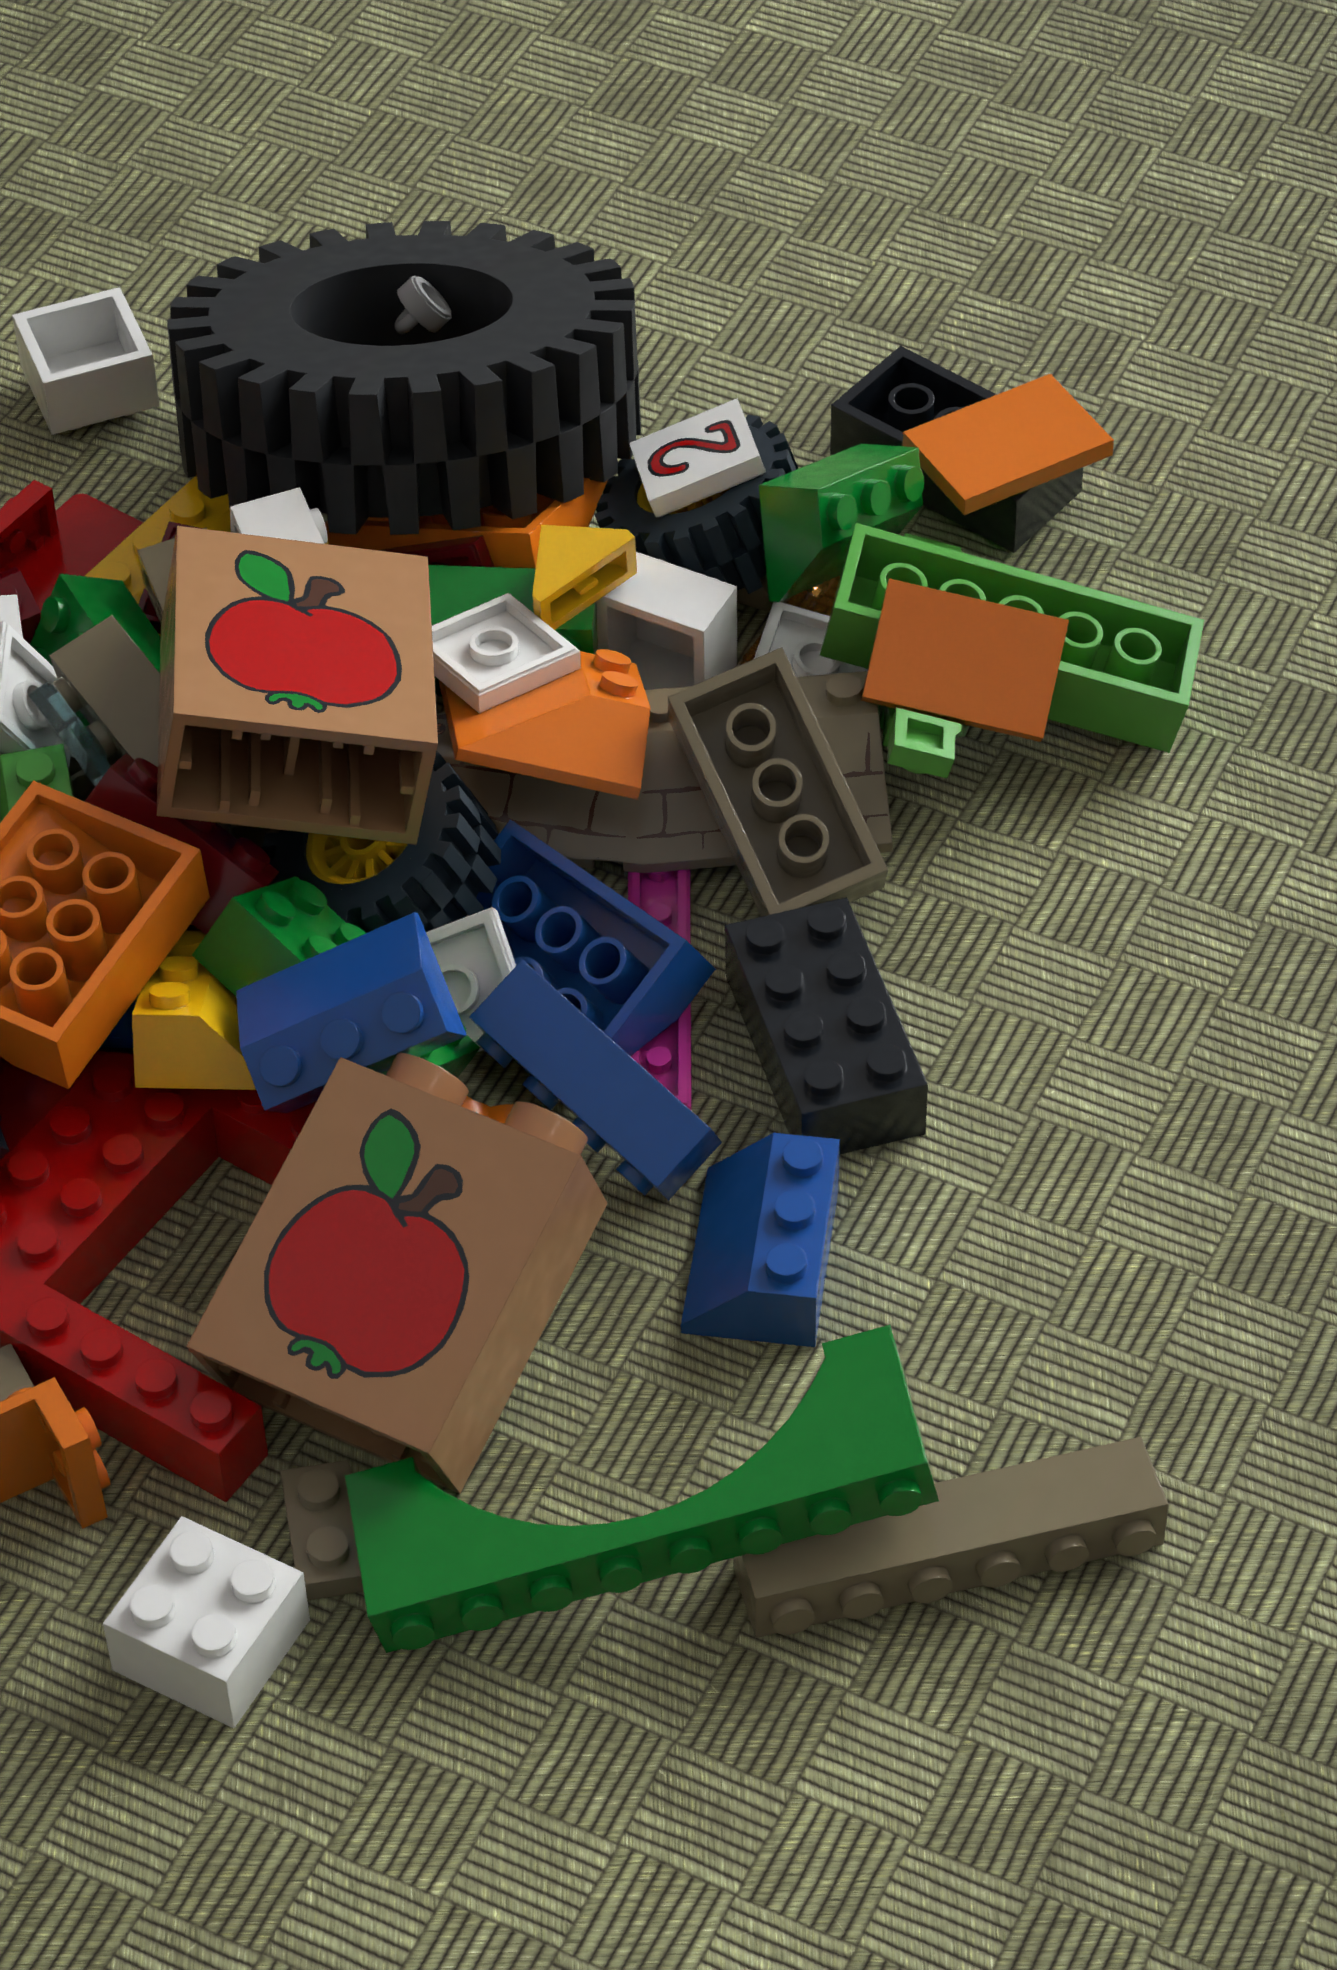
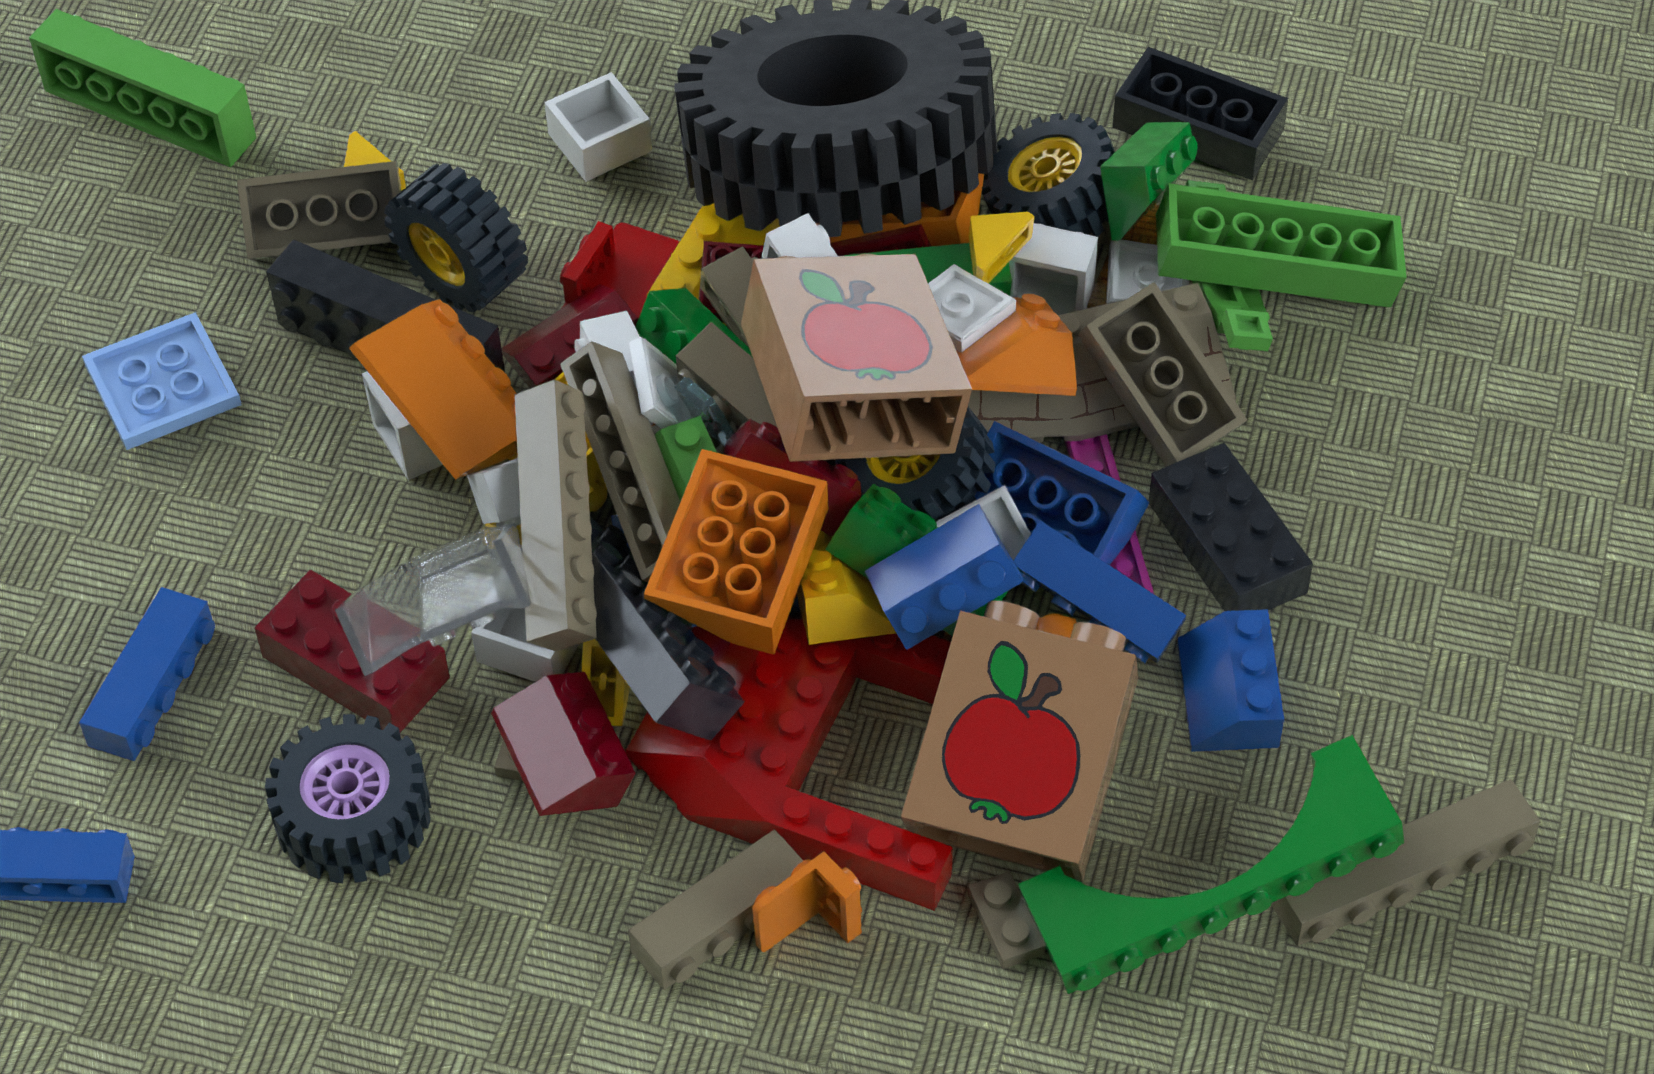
camera: 10 degrees left, 5 degrees up
(207, 1621) = (955, 994): white piece -> none
(422, 305) = (835, 66): light grey tile -> none
(697, 458) = (1047, 149): white tile -> none
(965, 660) = (1262, 269): orange tile -> none
(1008, 443) = (1241, 109): orange tile -> none

